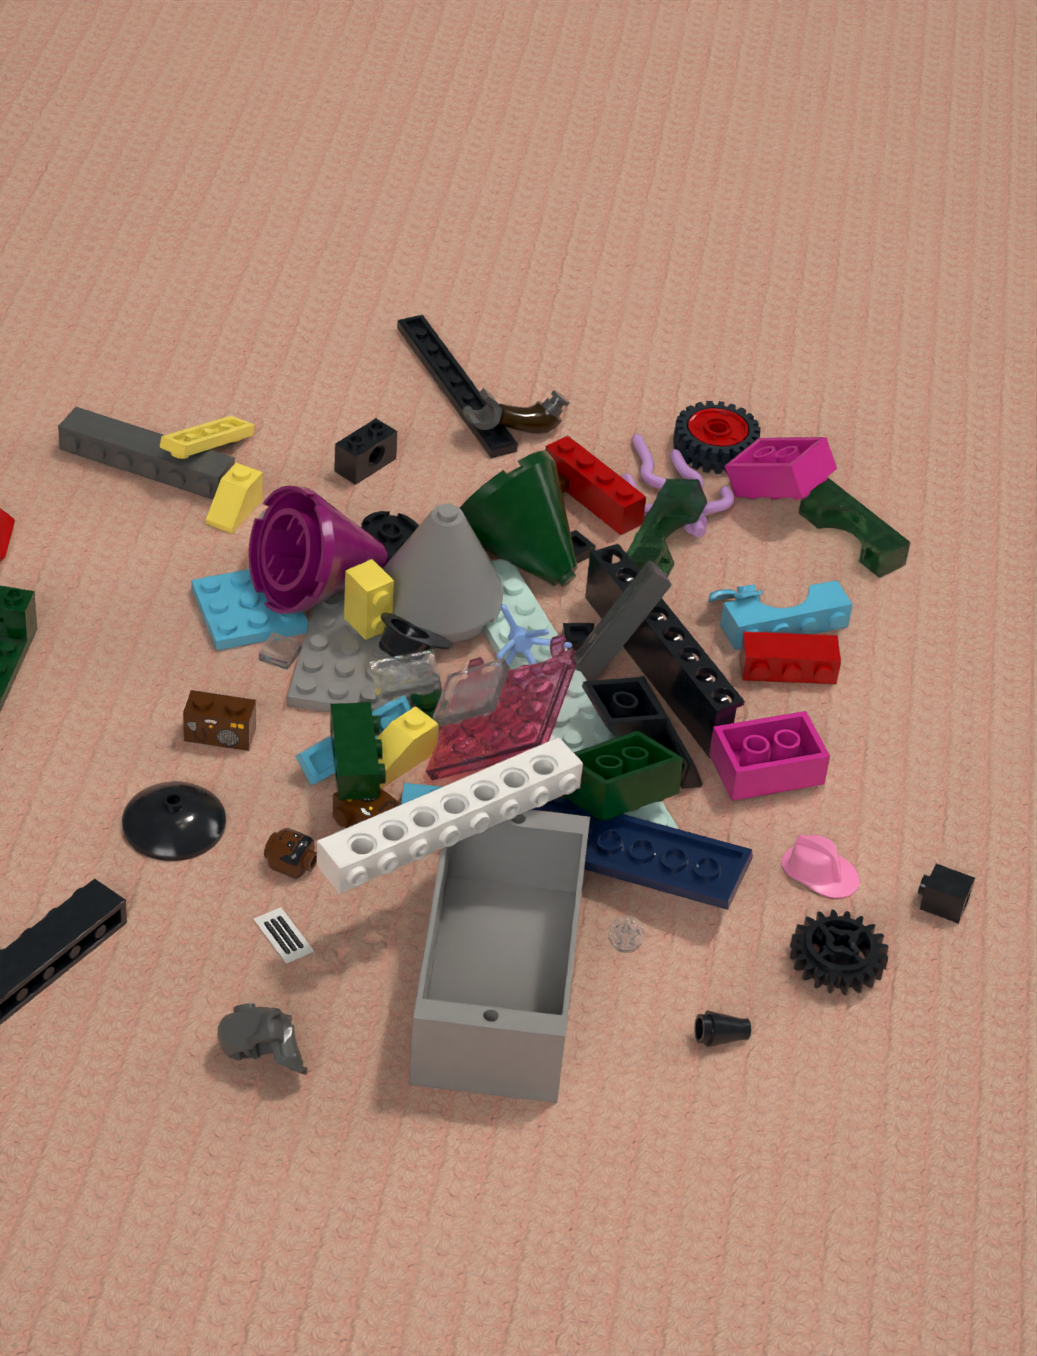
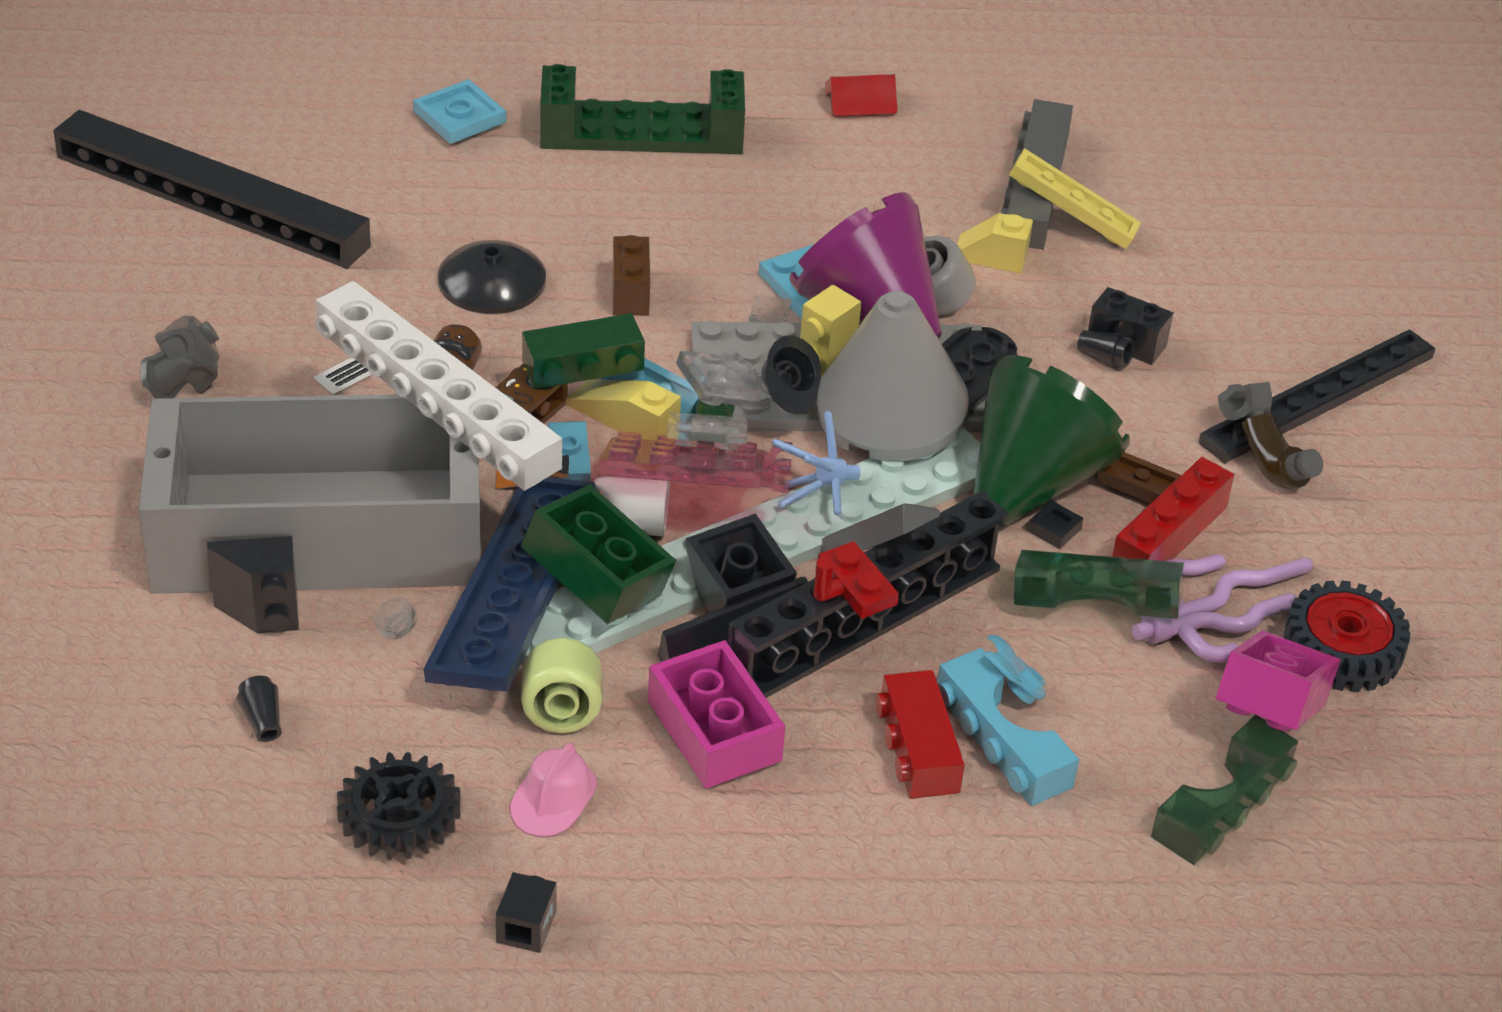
camera: 80 degrees right, 0 degrees up
(385, 469) = (1108, 347): none -> black cone
(599, 1002) = (256, 582): none -> black slope
(686, 631) = (855, 577): none -> red plate
(731, 824) = (562, 685): none -> yellowish green head

